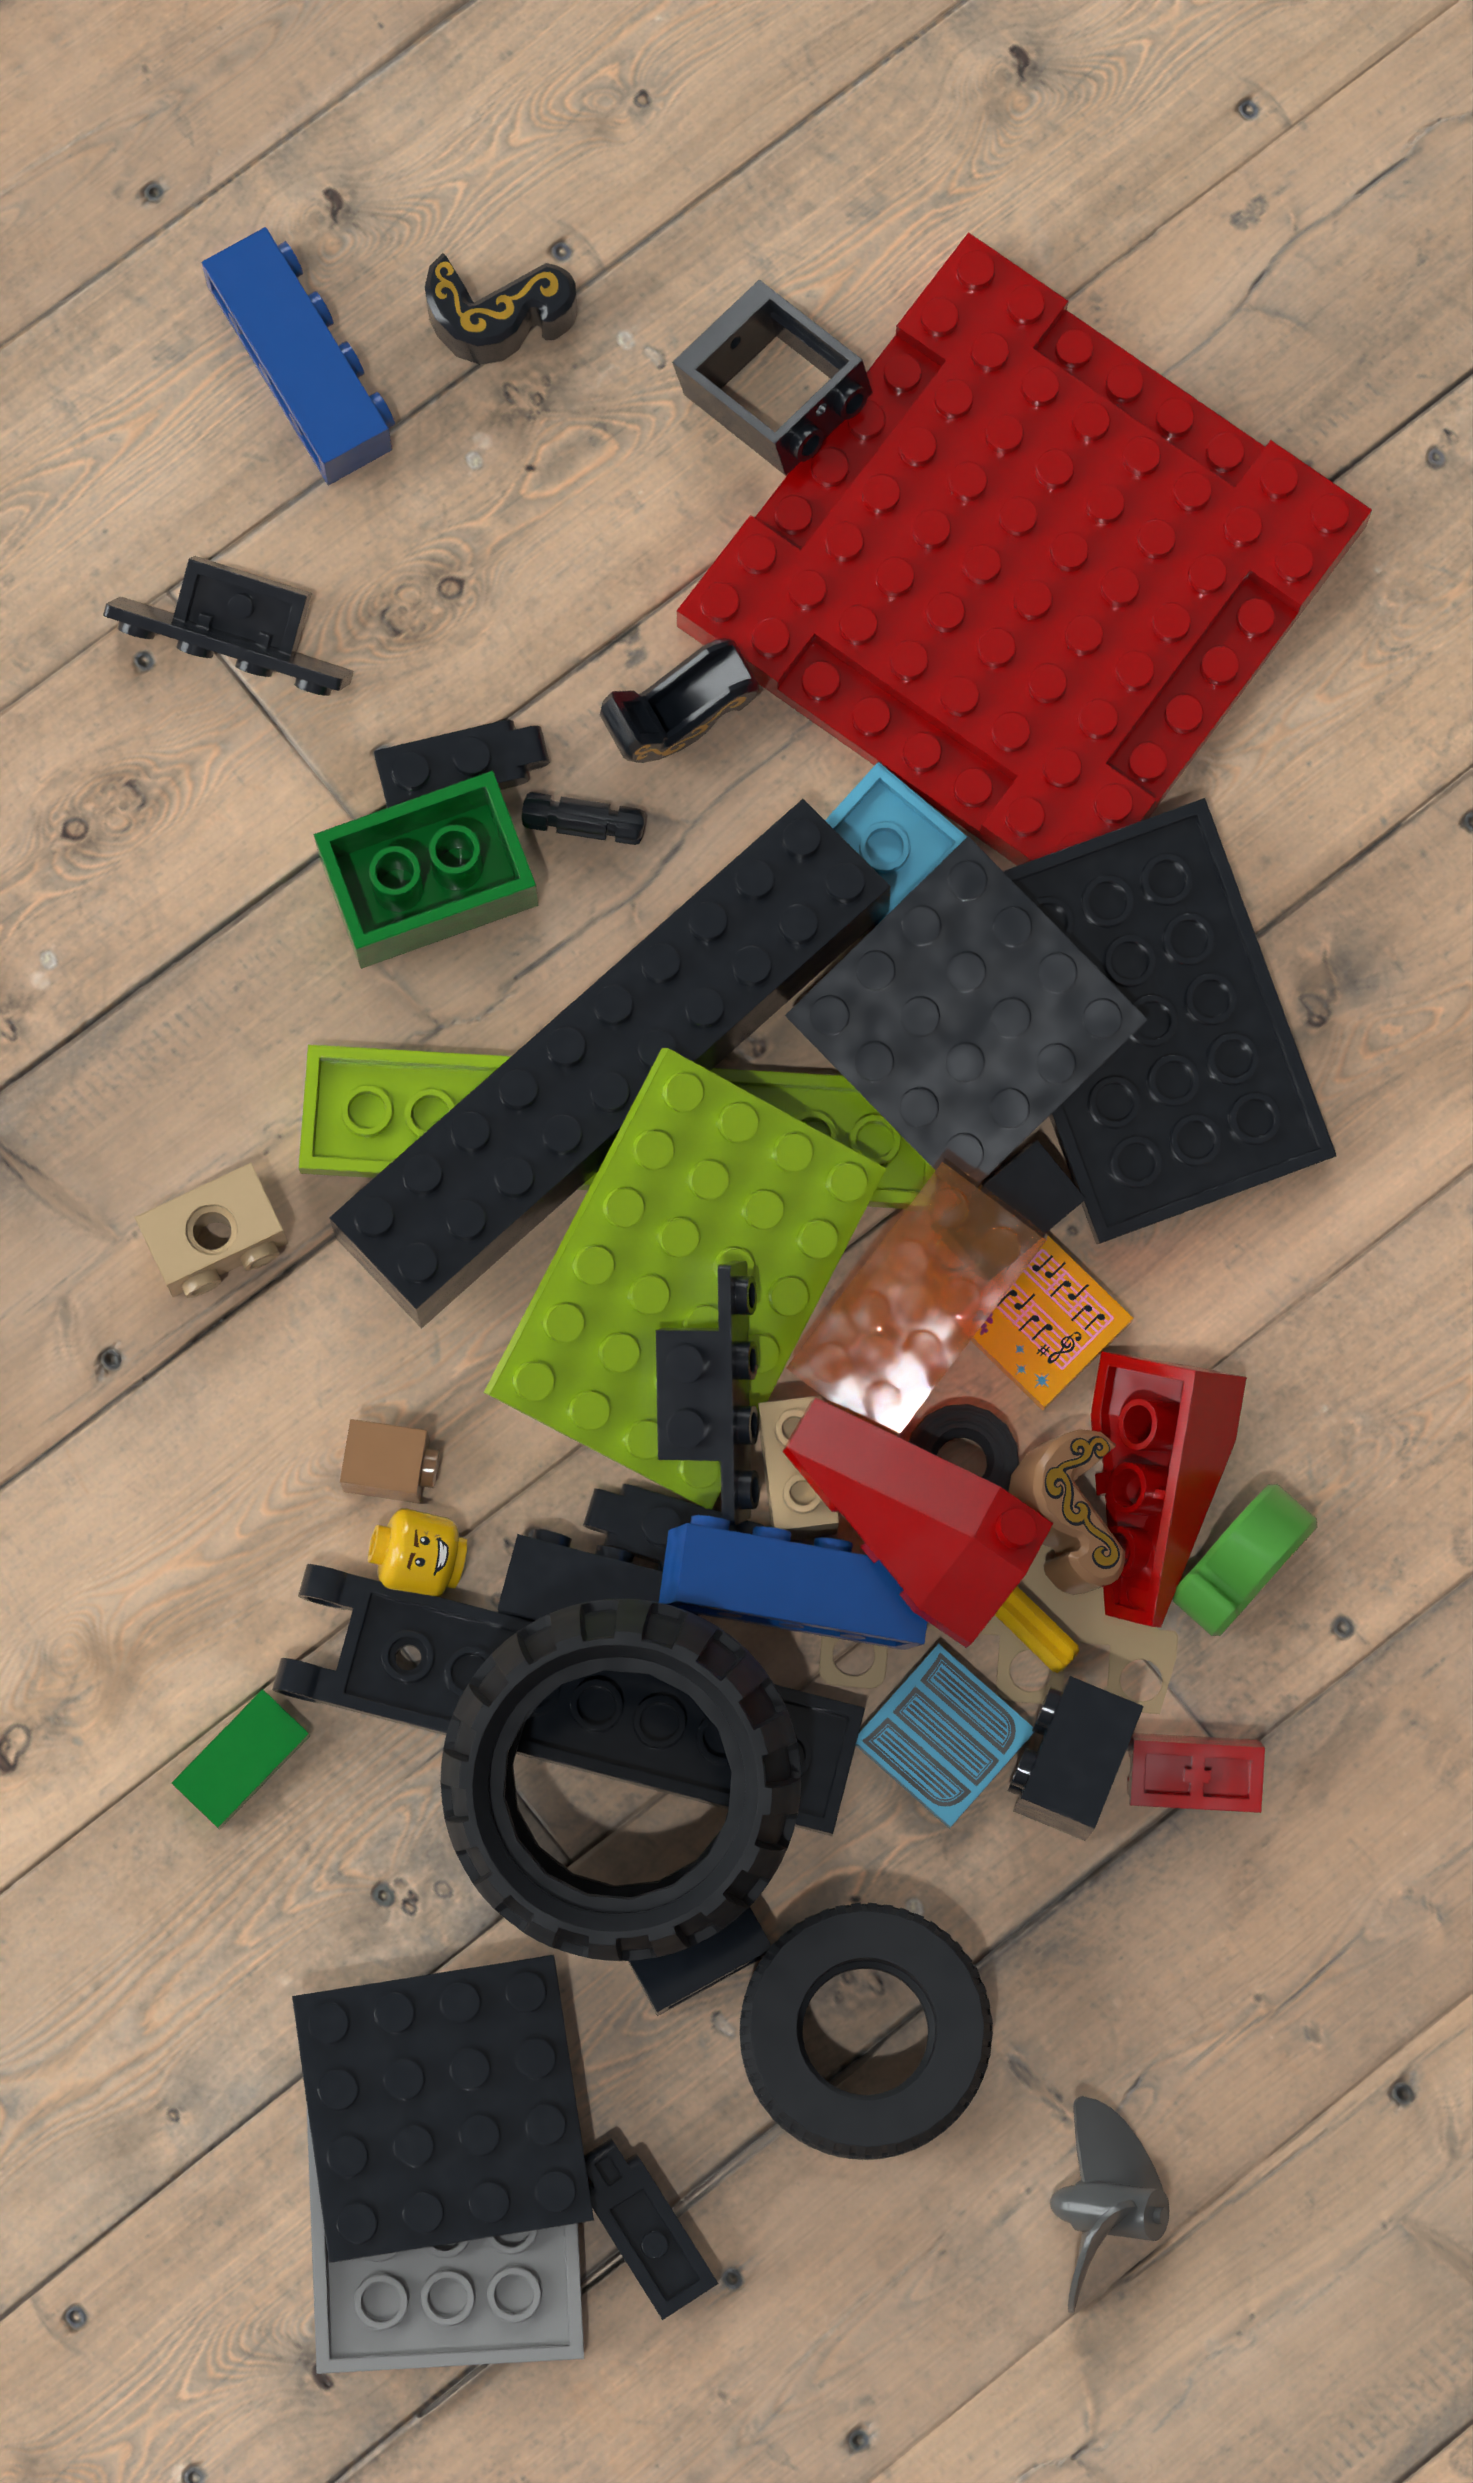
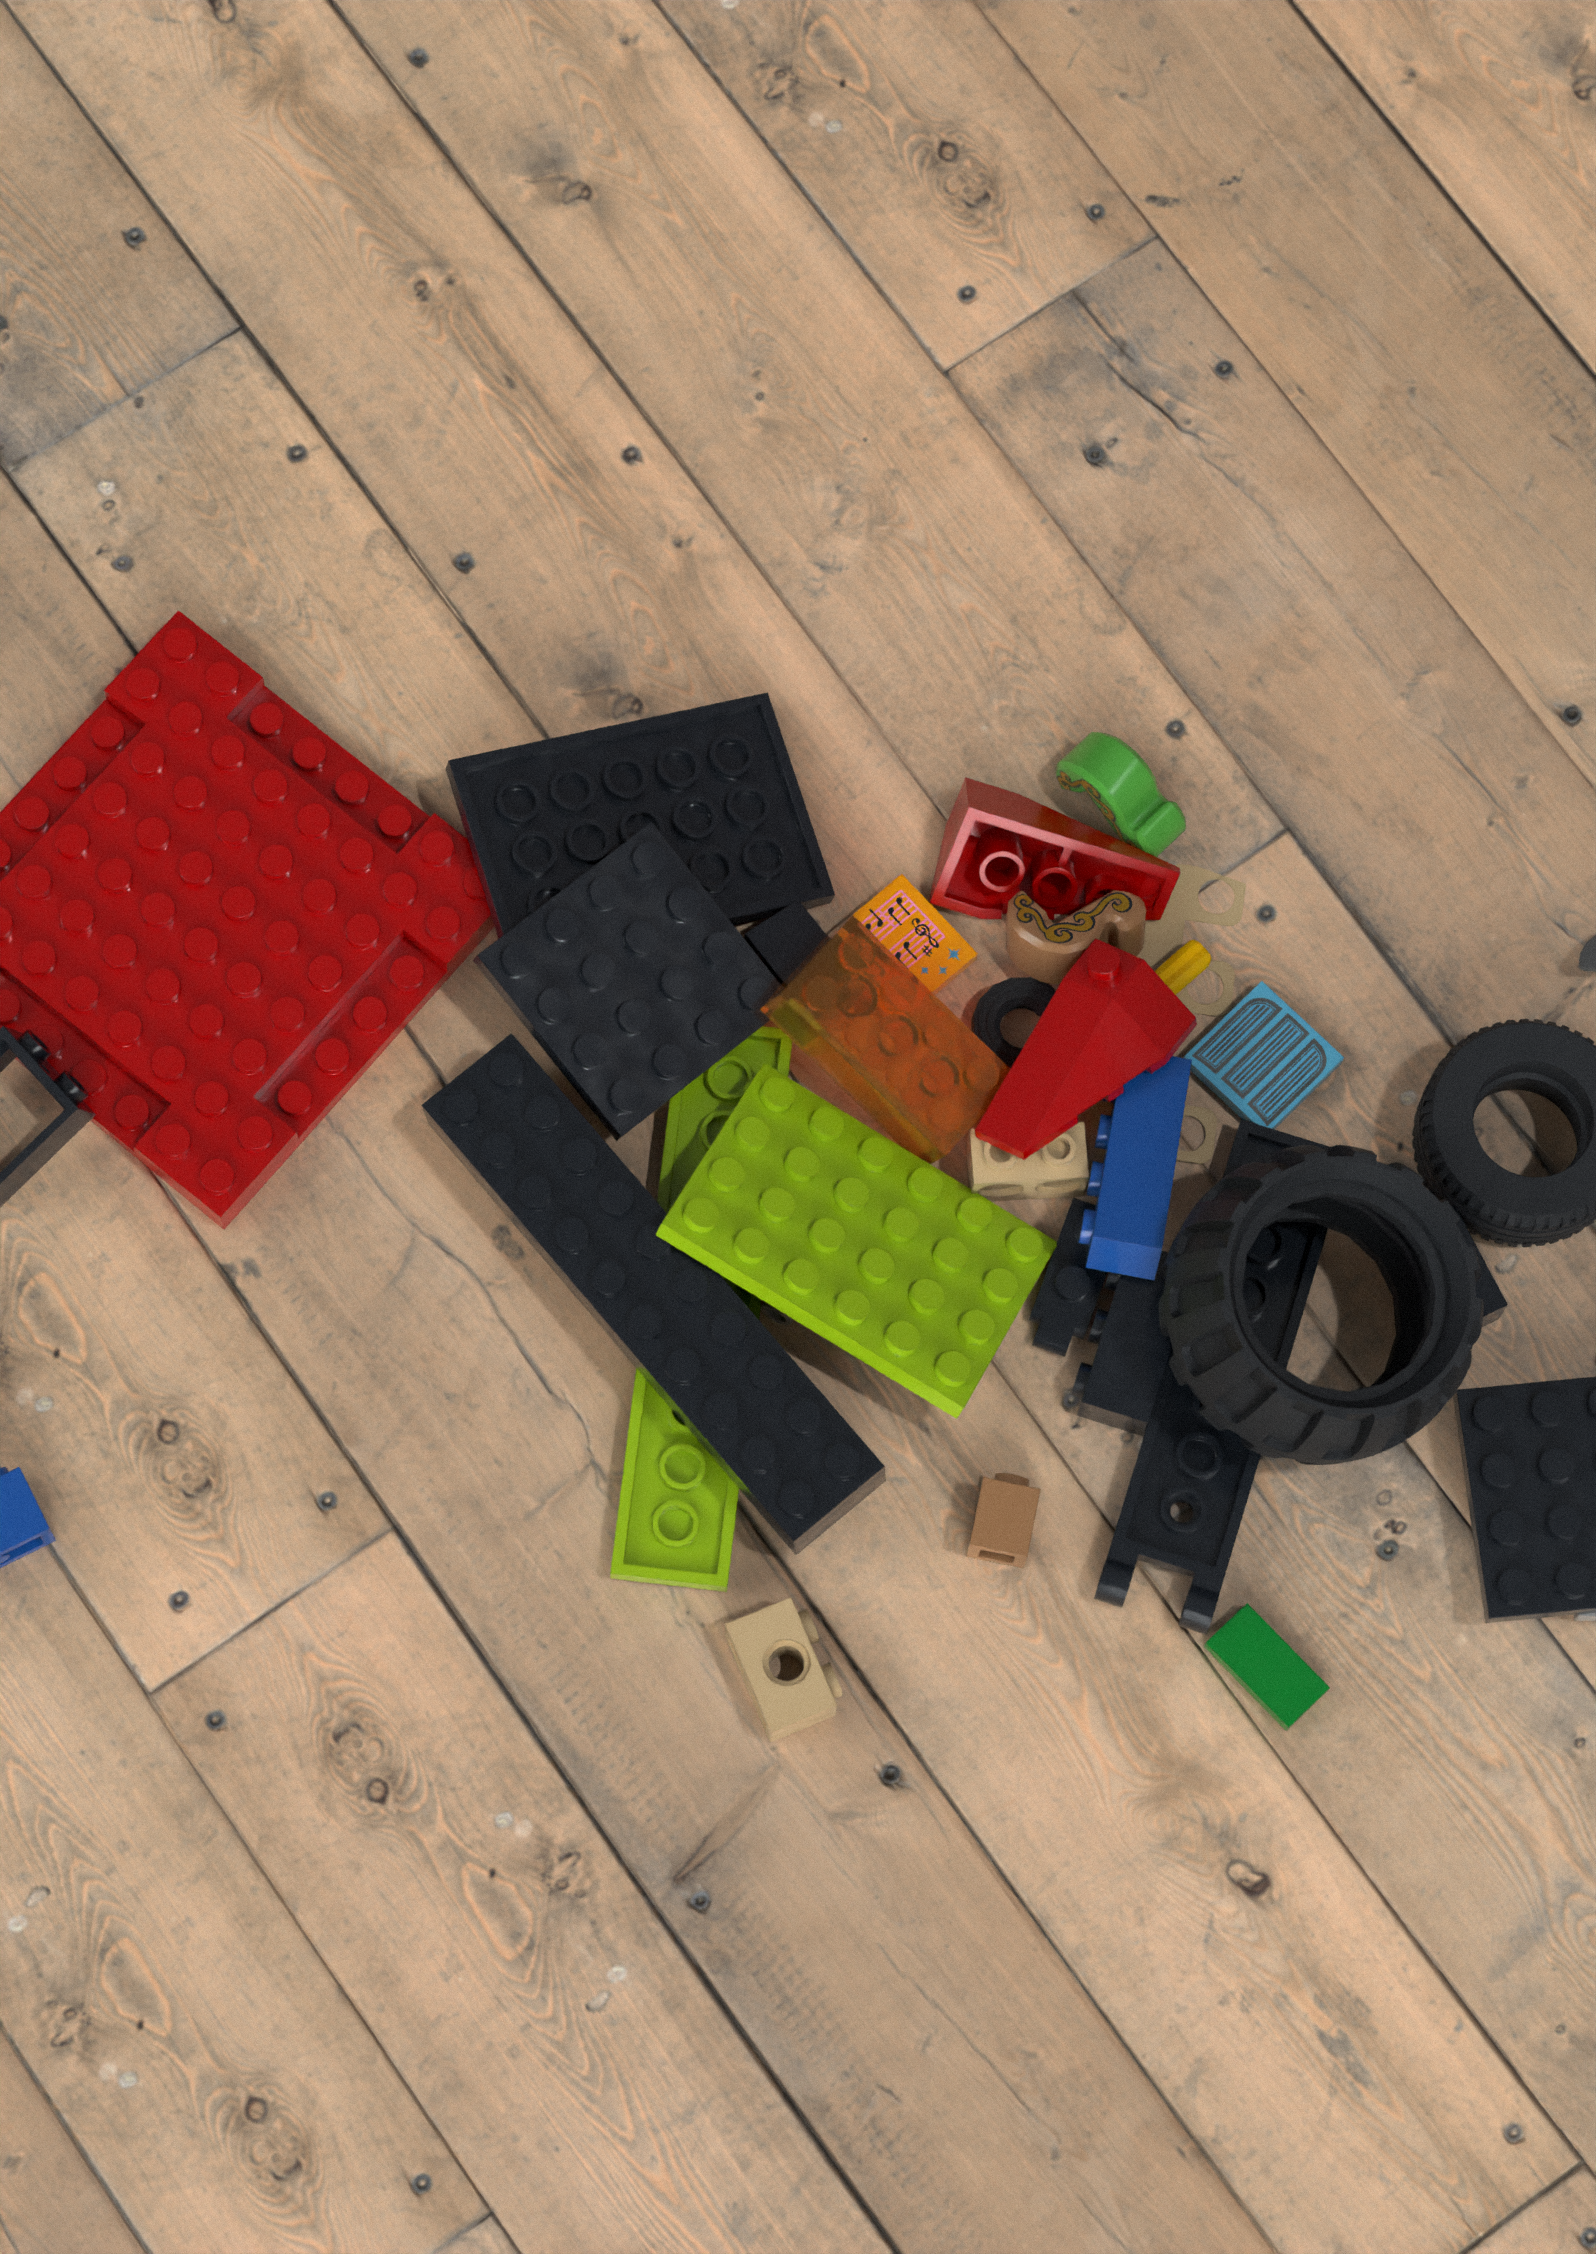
camera: 90 degrees left, 5 degrees down
(236, 617) = (189, 1622): black bracket -> none
(418, 1552) = (1089, 1496): yellow head -> none
(426, 869) = (453, 1455): green brick -> none
(450, 758) = (345, 1431): black hinge -> none
(583, 818) = (406, 1319): black axle -> none
(680, 704) = (309, 1217): black animal -> none
(706, 1393) = (964, 1226): black bracket -> none
(894, 831) = (442, 1042): medium azure tile -> none
(1077, 1758) = (1295, 940): black brick -> none
(1196, 1772) = (1303, 850): red hinge -> none

